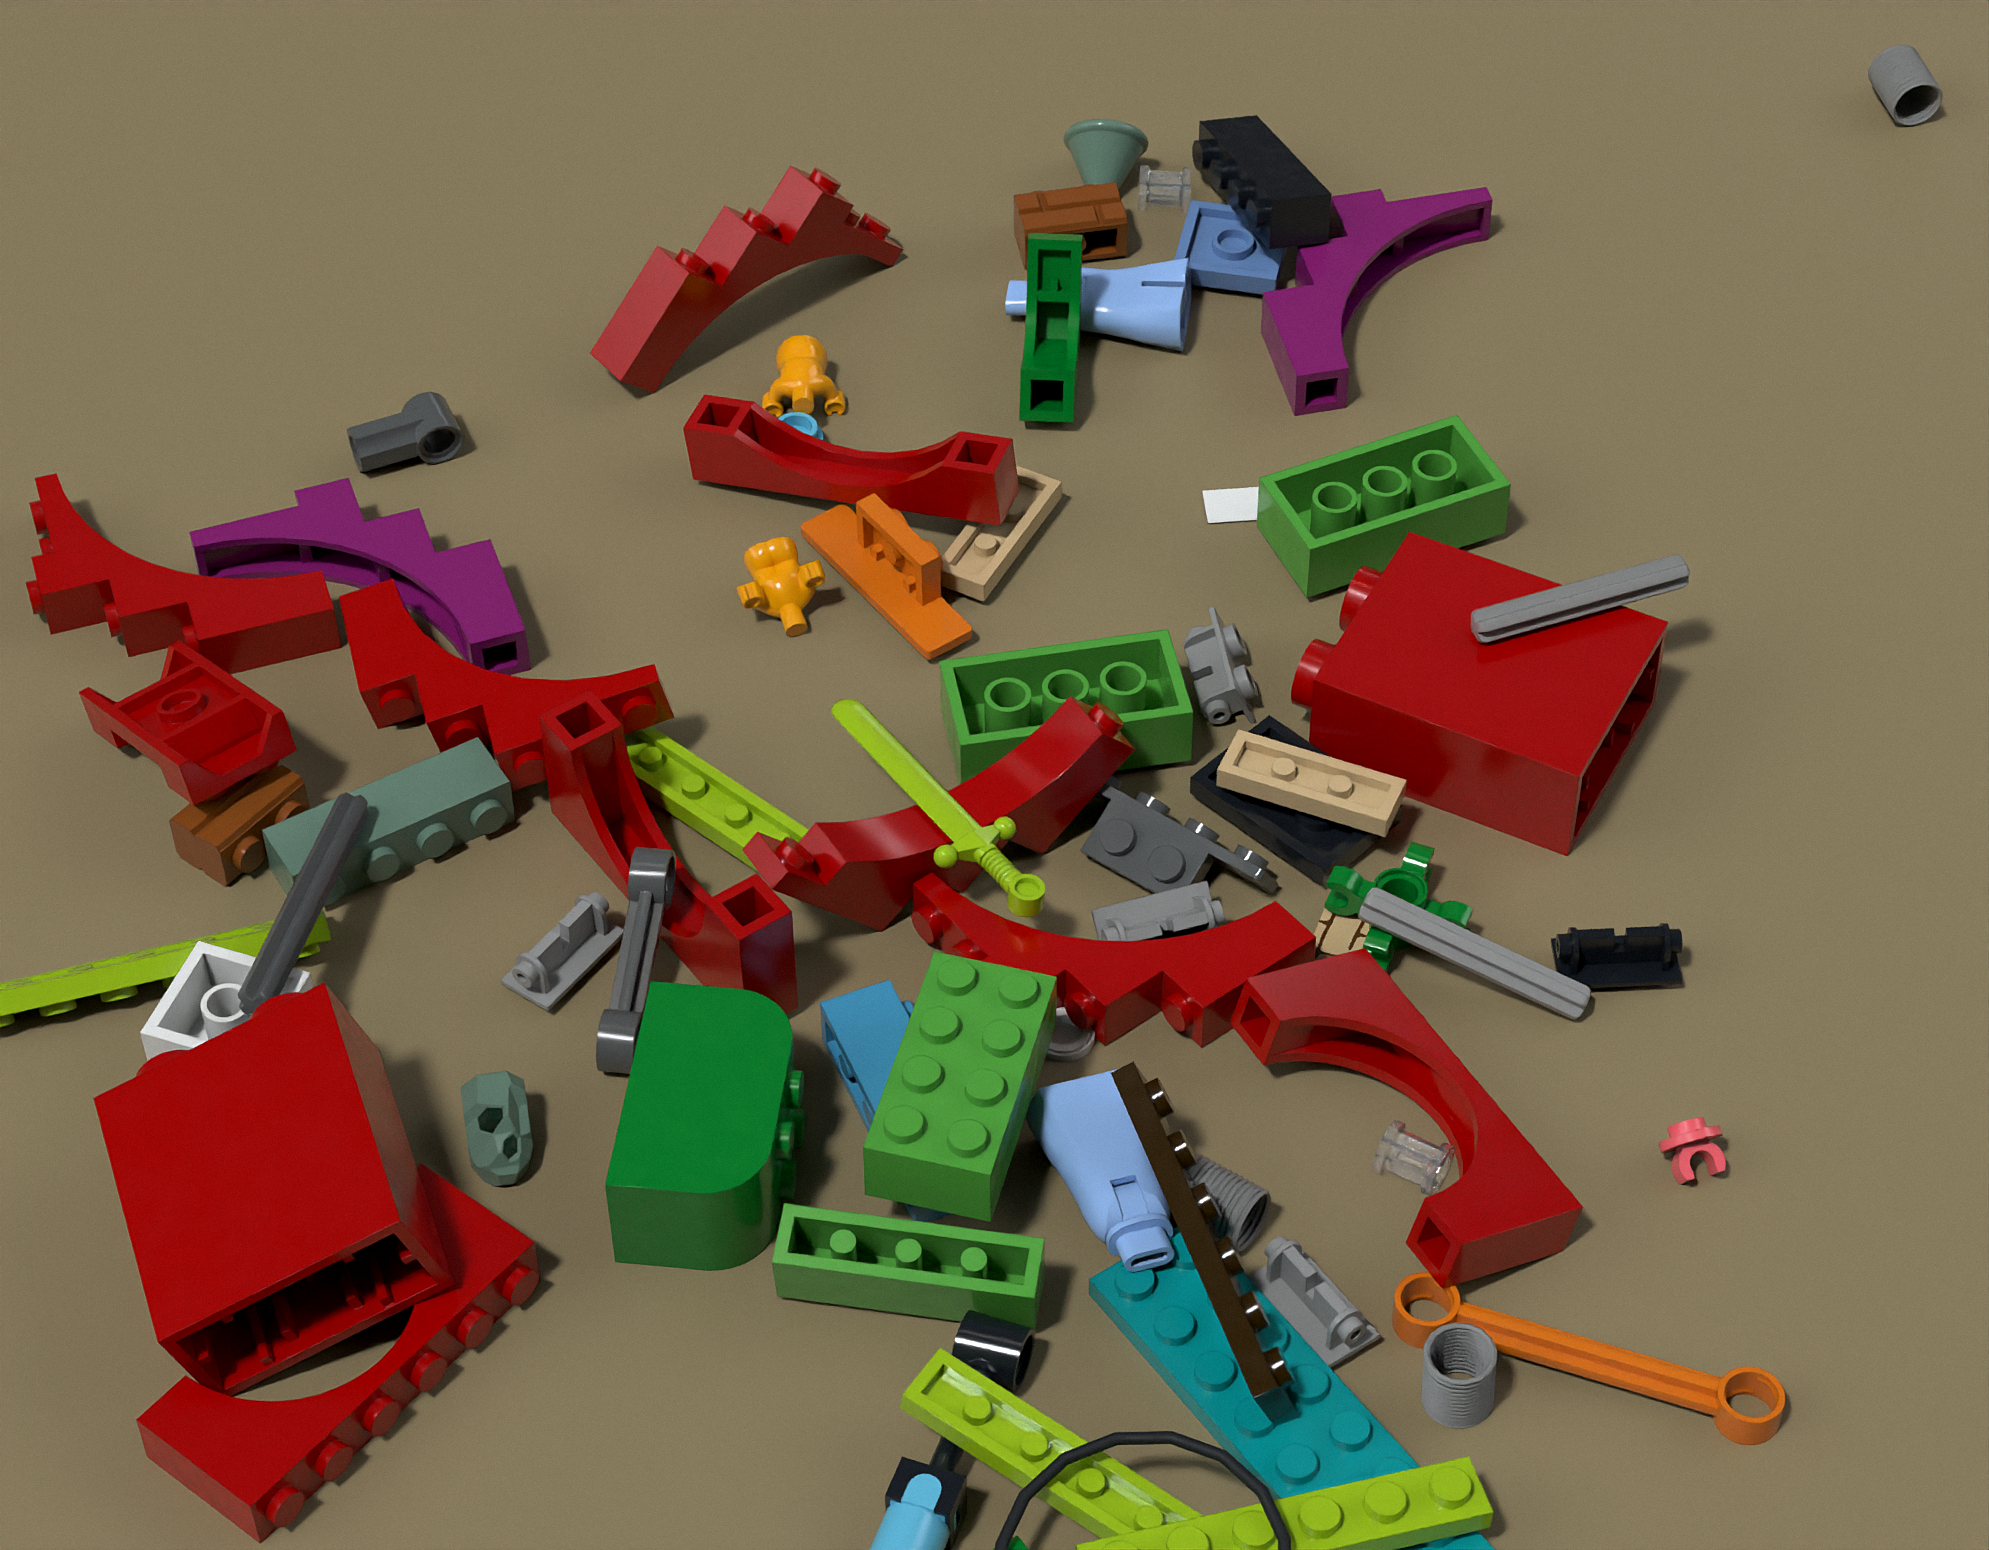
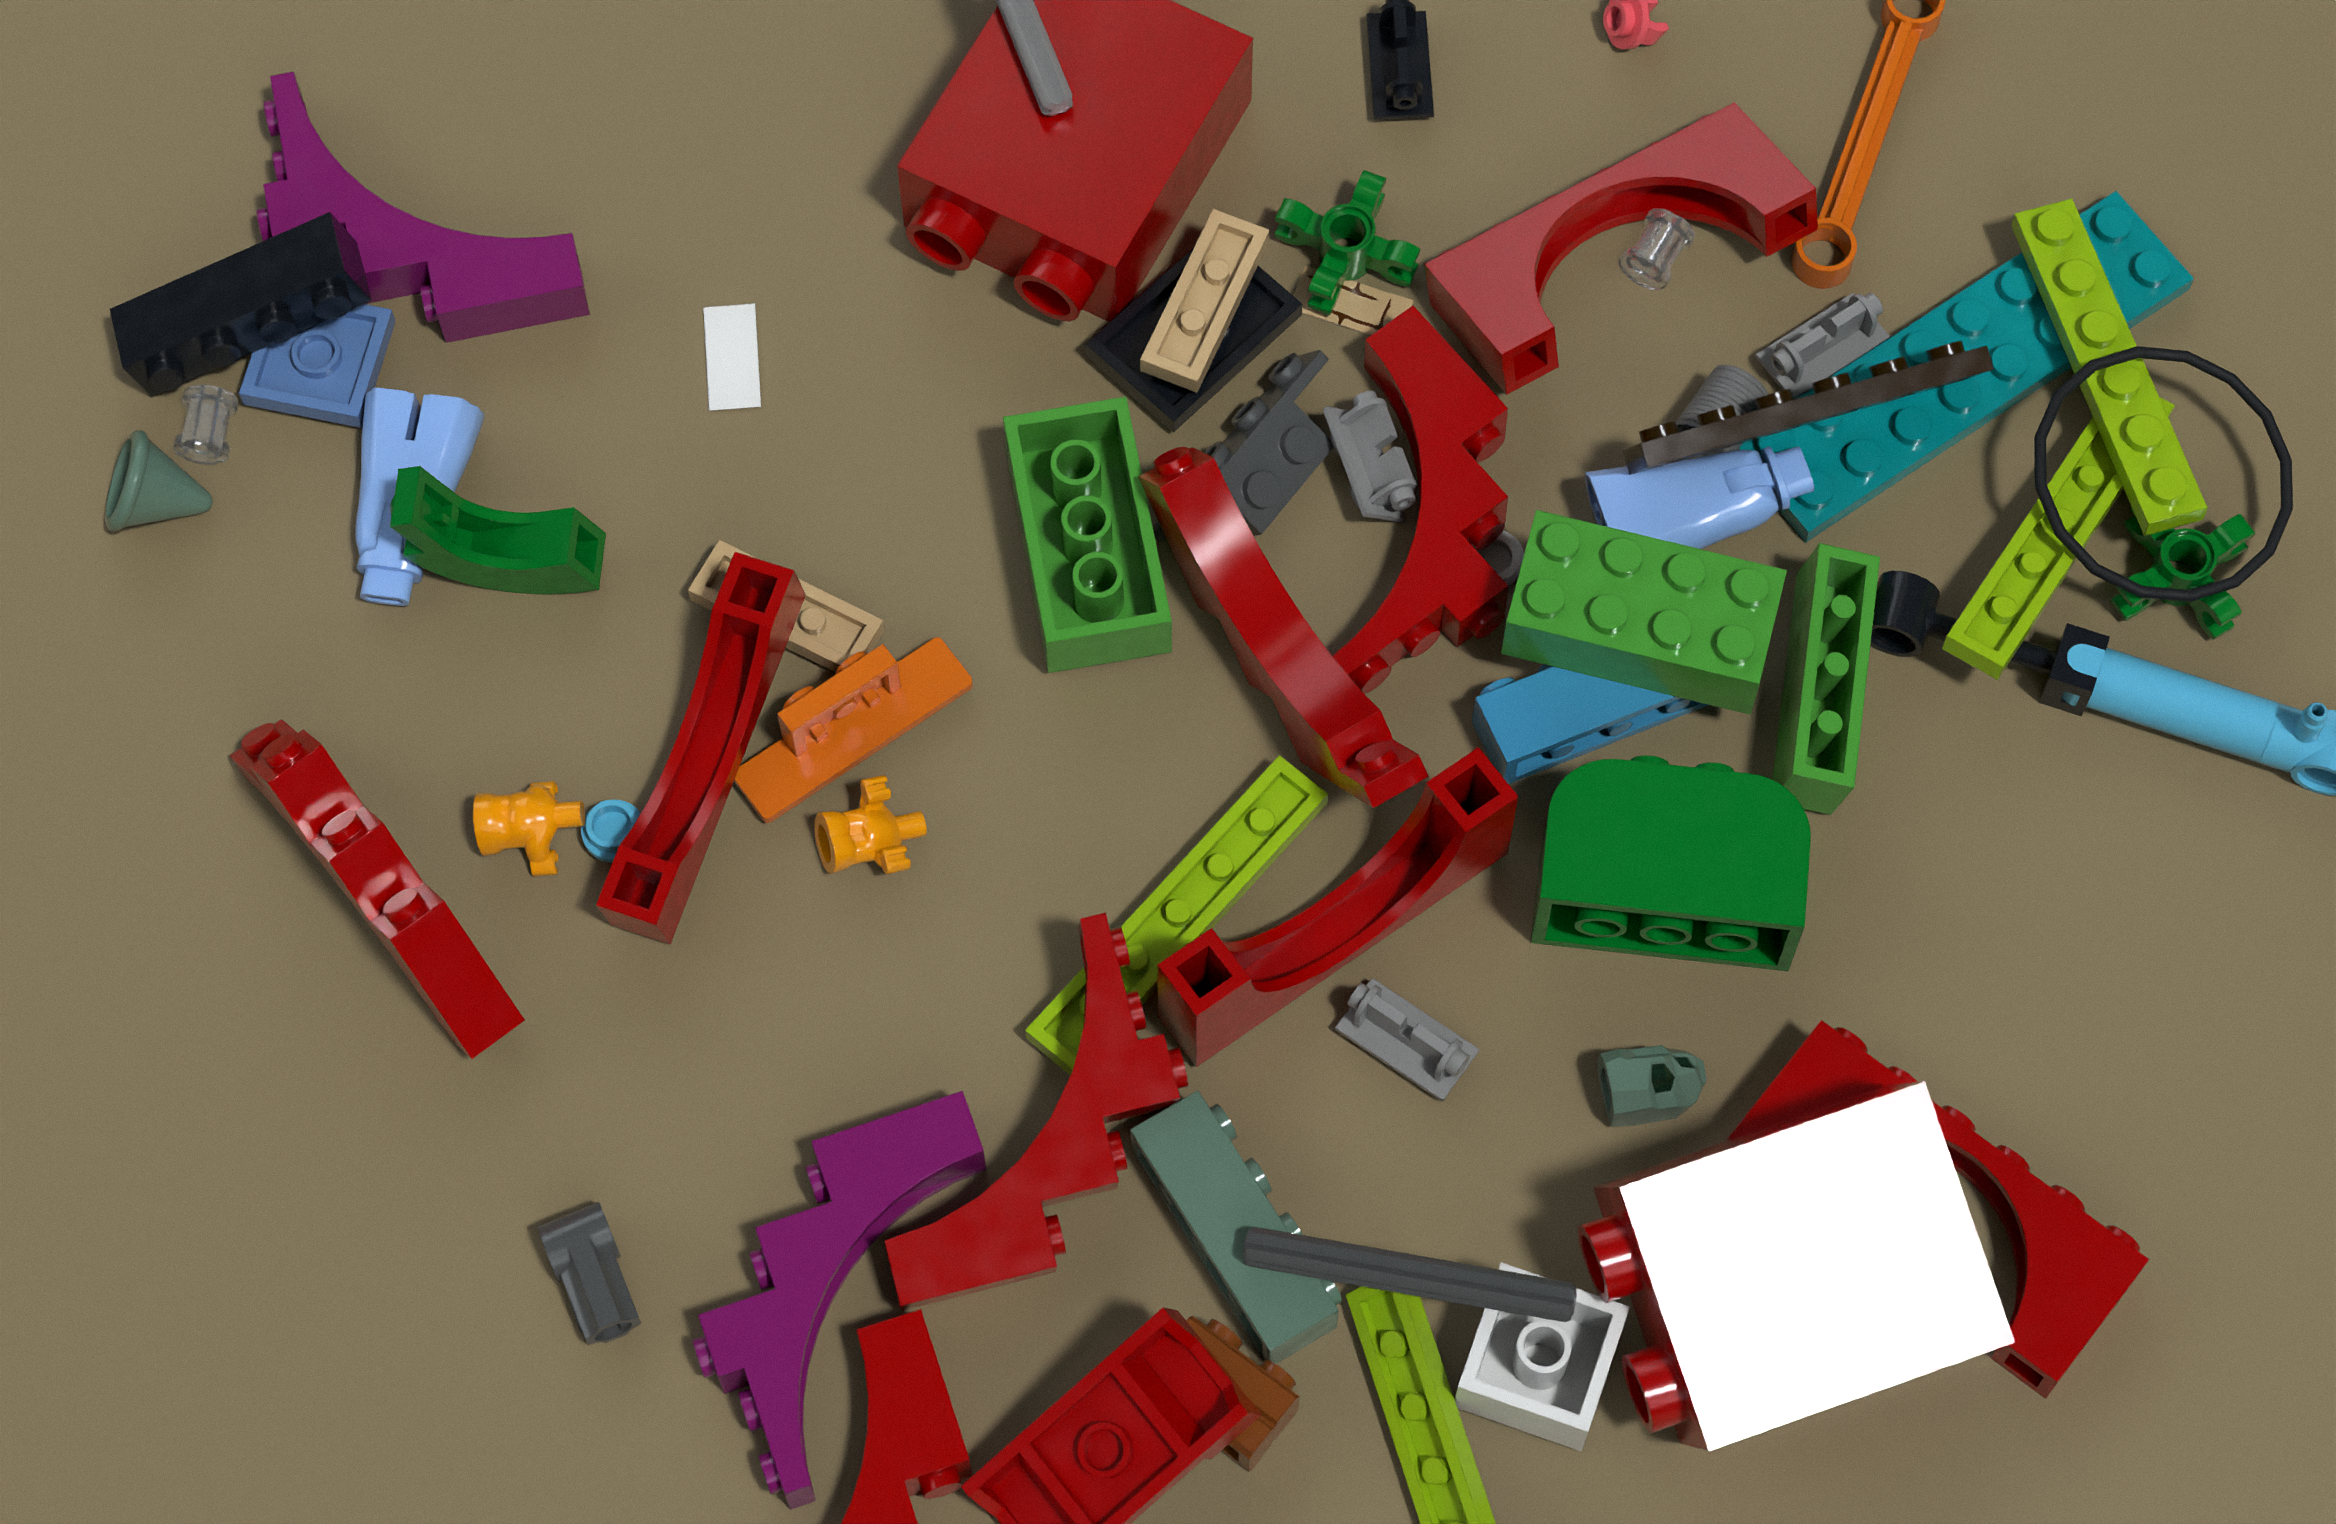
camera: 90 degrees left, 20 degrees up
(649, 895) = (1521, 965): dark grey piece -> none
(970, 840) = (1312, 605): lime sword -> none
(1081, 210) = (265, 528): dark orange brick -> none
(1230, 685) = (982, 395): light grey hinge -> none
(1365, 500) = (785, 216): bright green brick -> none
(1464, 1350) = (1920, 200): light grey piece -> none
(1474, 953) = (1417, 175): light grey axle -> none

